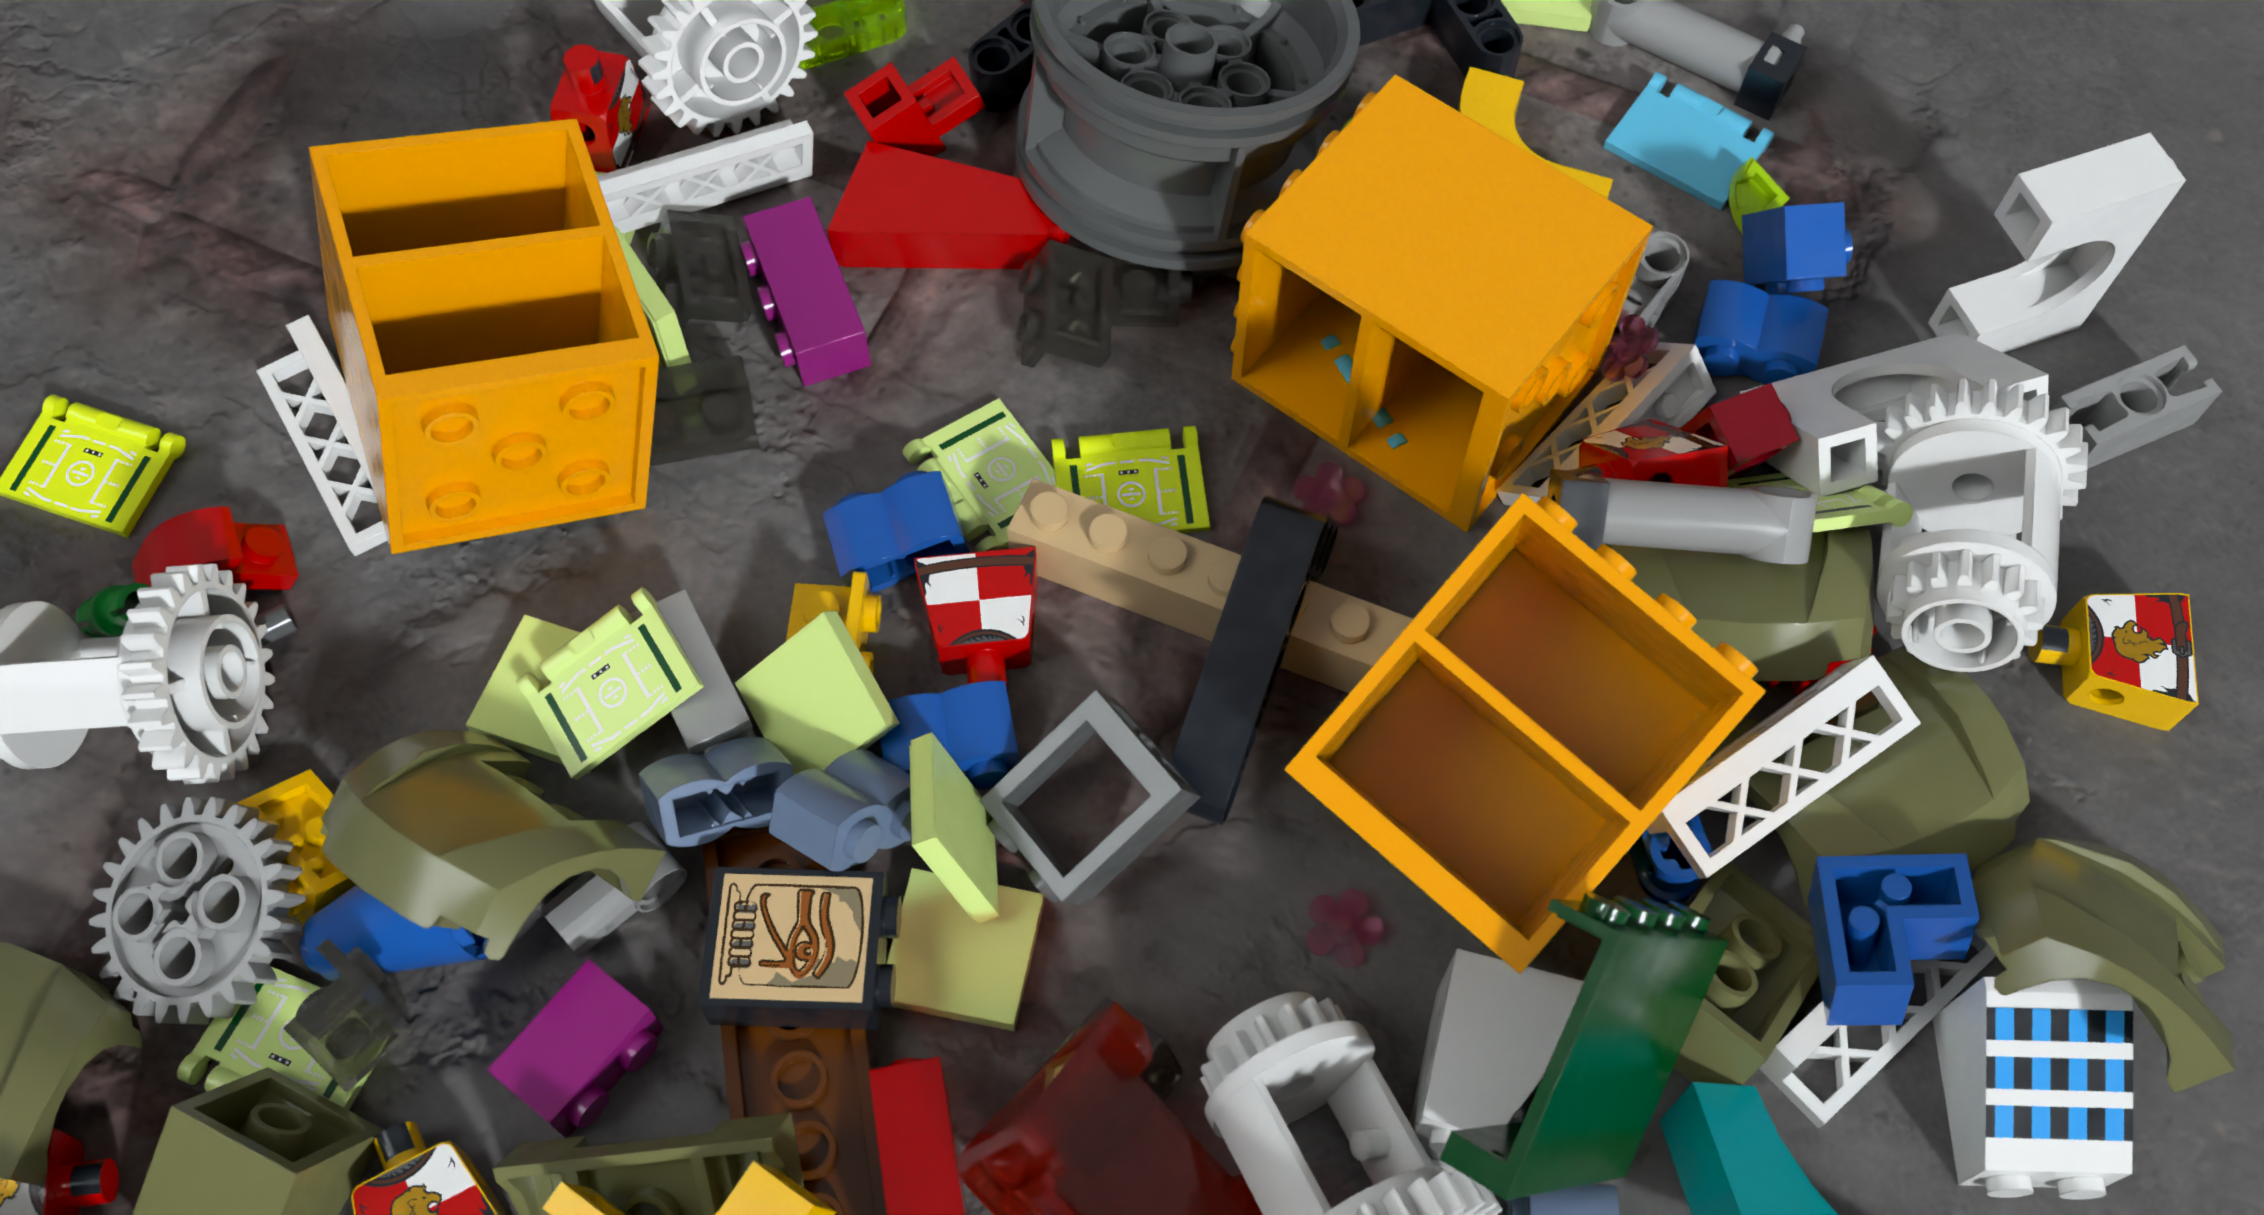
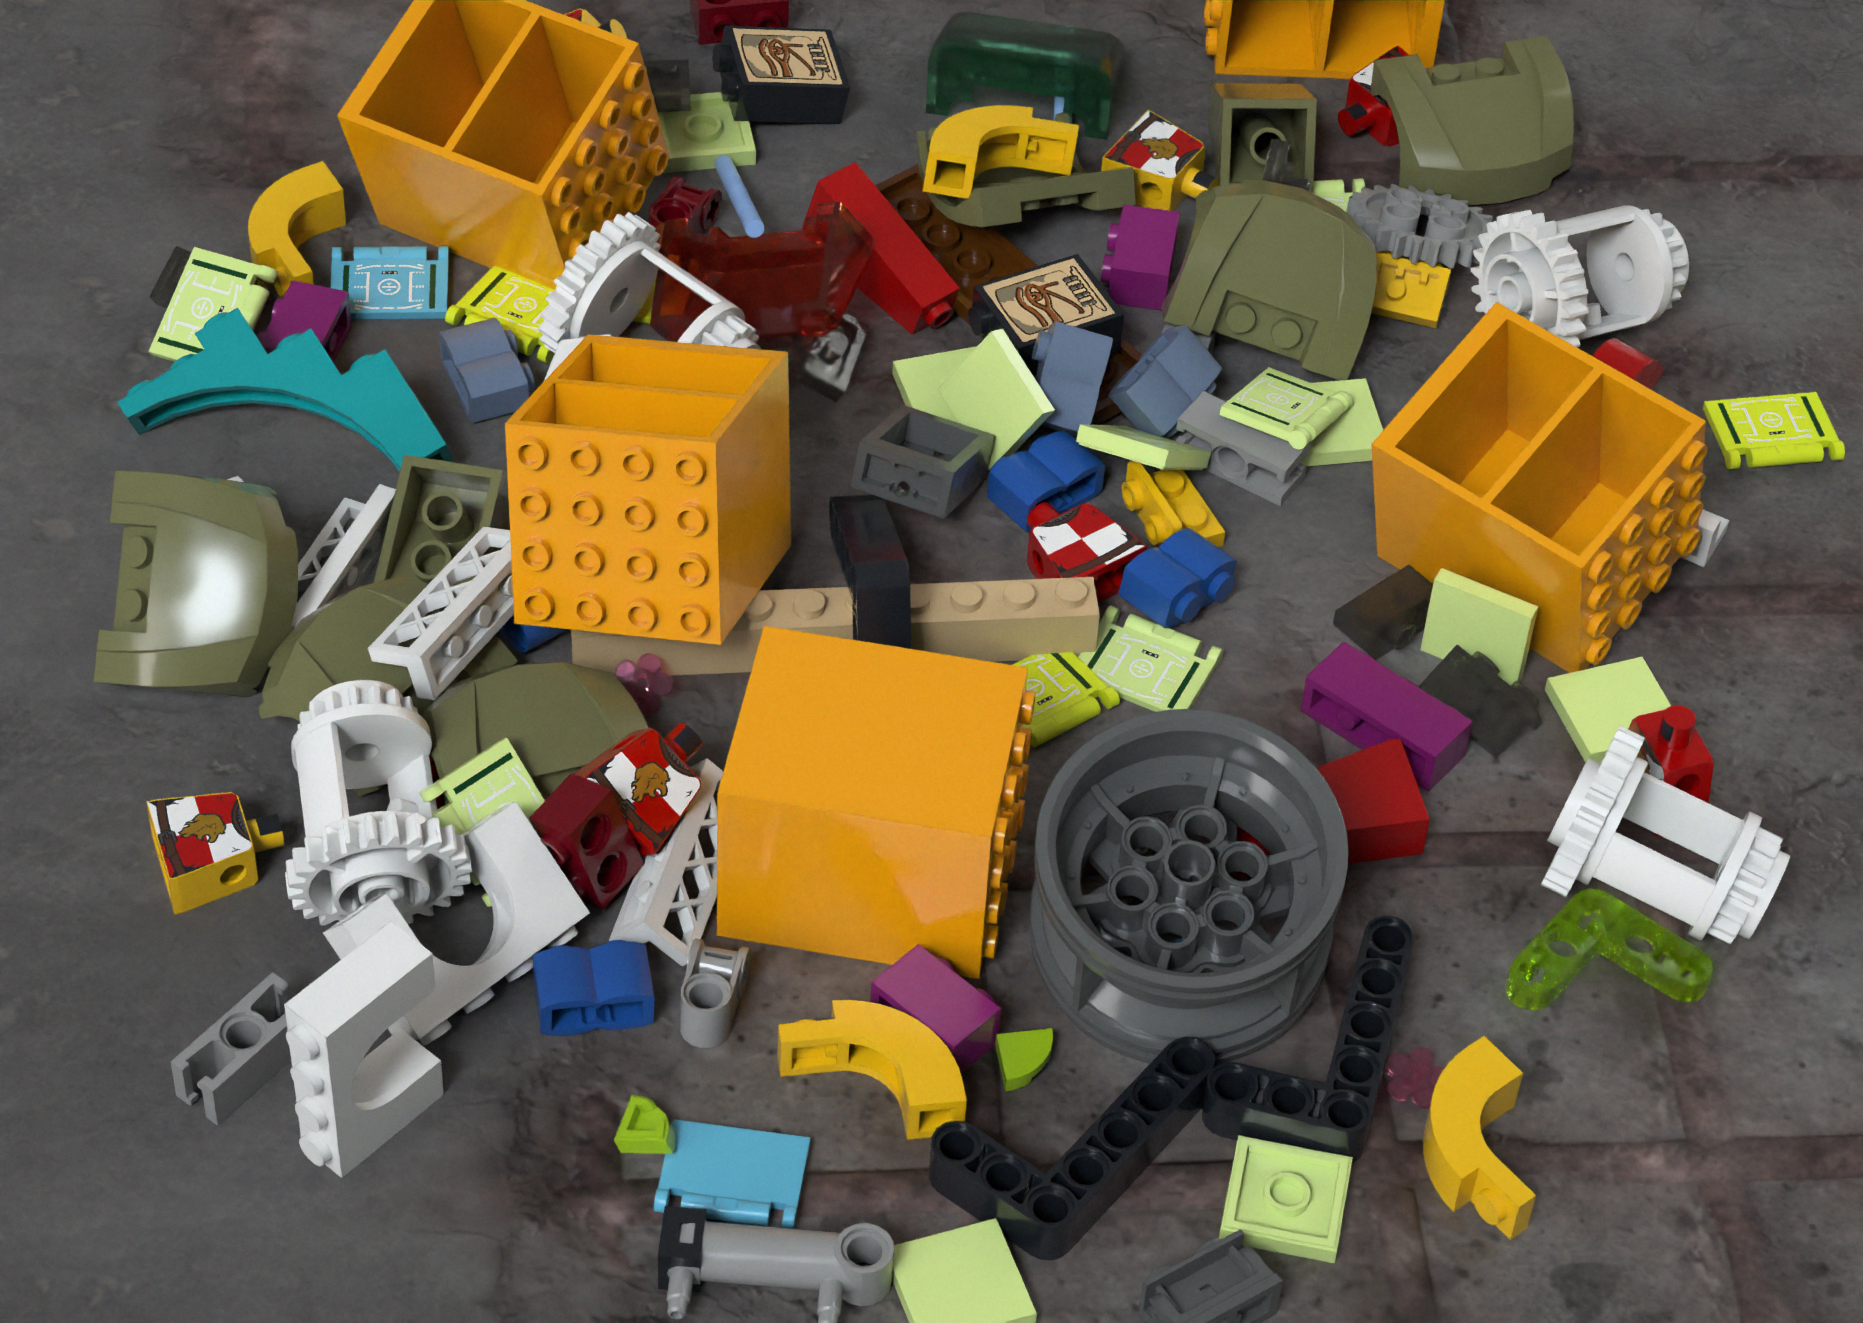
camera: 150 degrees right, 15 degrees down
(102, 610) = (1634, 328): green pin -> none
(708, 174) = (1545, 757): white fence -> none
(916, 113) = (1424, 869): red brick -> none
(1609, 1055) = (529, 353): dark green panel -> none
(1628, 349) = (700, 916): clear pink plant -> none
(1754, 522) = (666, 670): light grey piece -> none
(1795, 247) = (593, 1033): blue brick -> none
(1877, 917) = (356, 537): blue brick -> none

